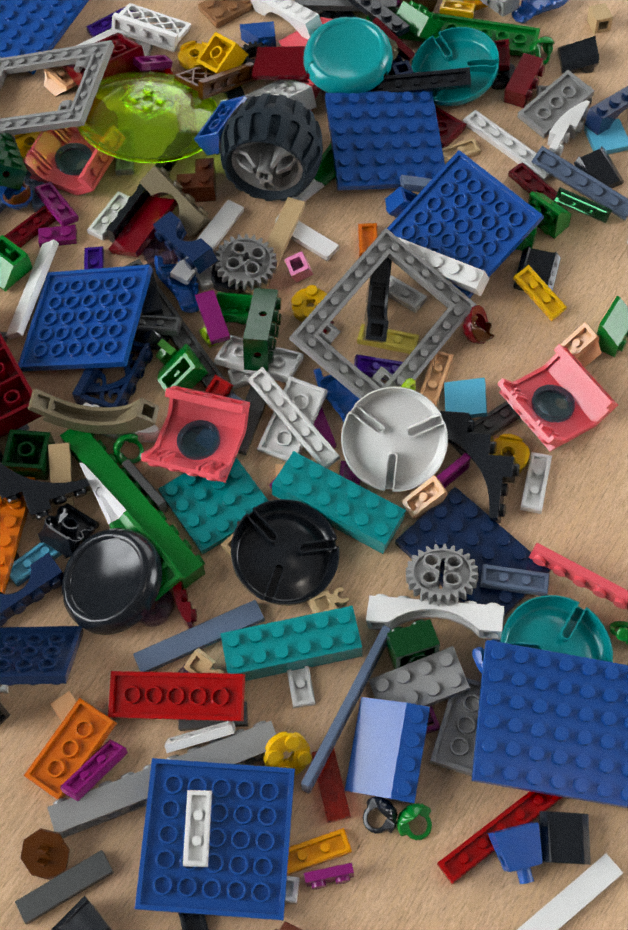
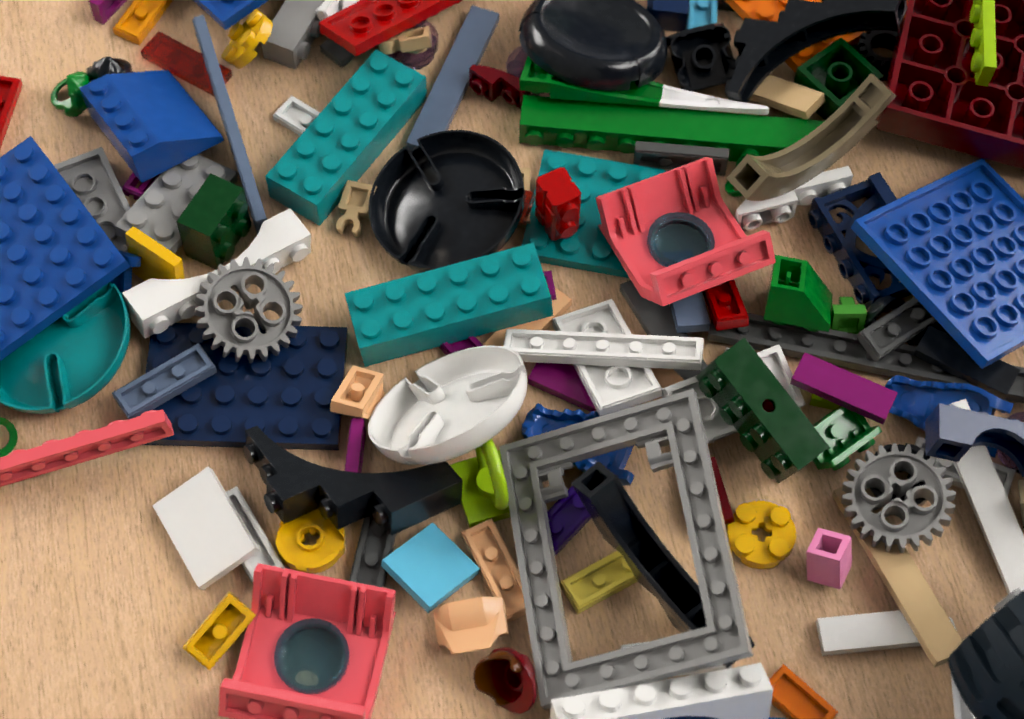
camera: 130 degrees right, 0 degrees up
(238, 493) = (558, 204): none -> red brick
(465, 646) = (155, 258): none -> yellow tile
(472, 359) = (470, 623): none -> light nougat slope
(553, 496) = (205, 528): none -> white tile
(586, 447) = (219, 630): none -> yellow slope

